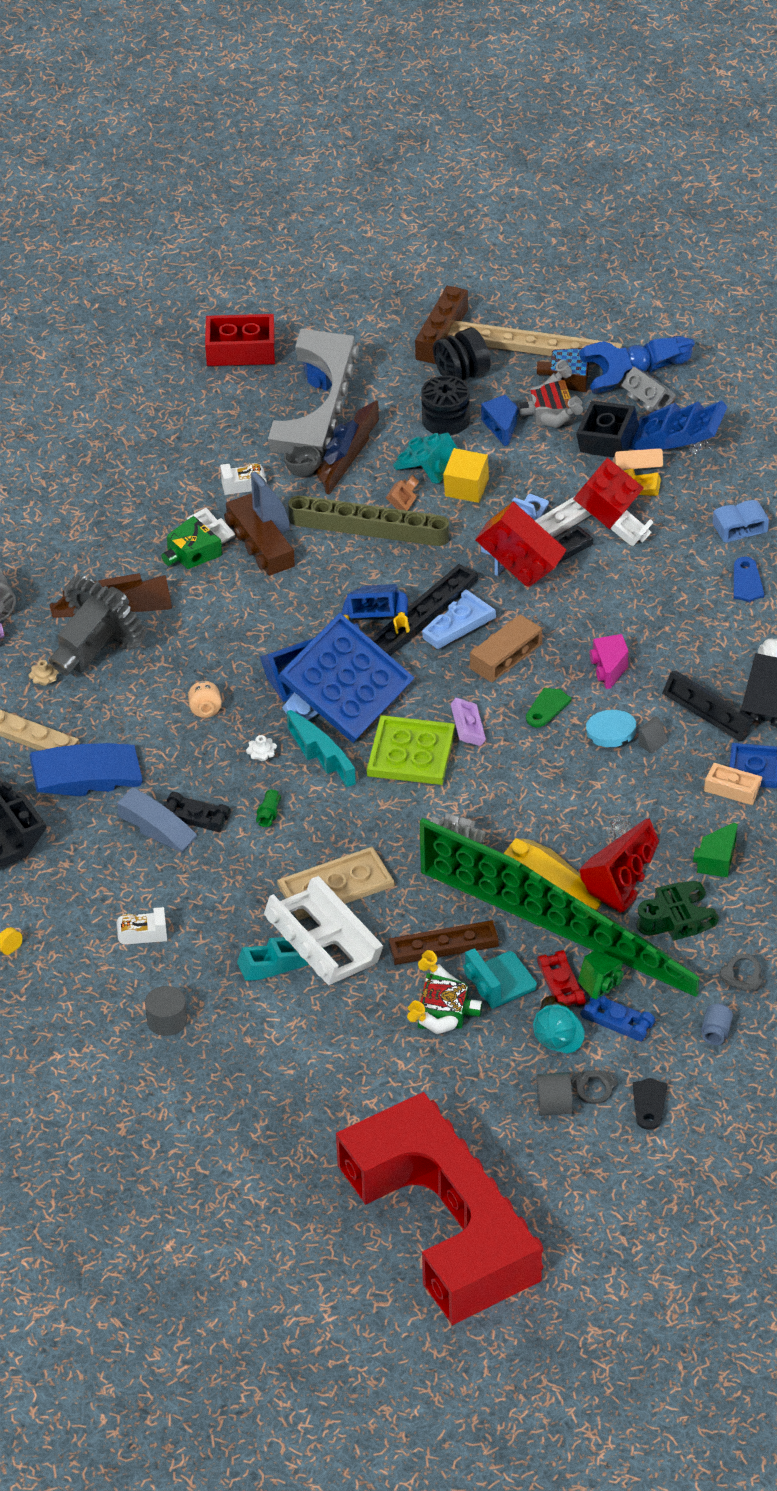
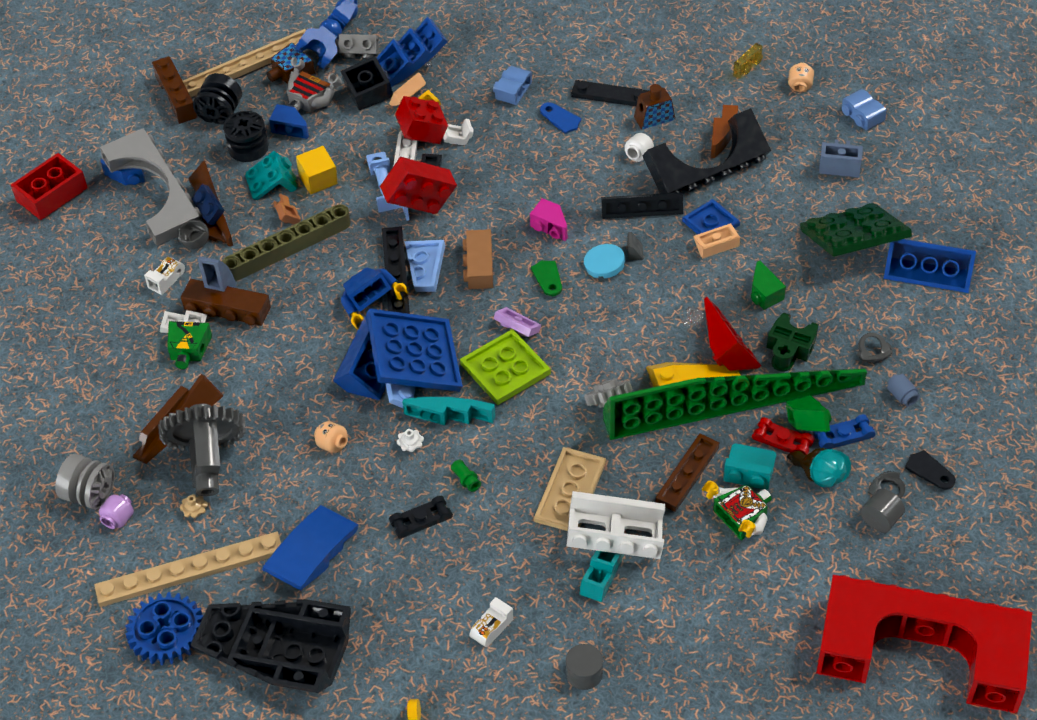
camera: 45 degrees left, 5 degrees up
(155, 820) = (405, 544): sand blue slope -> none

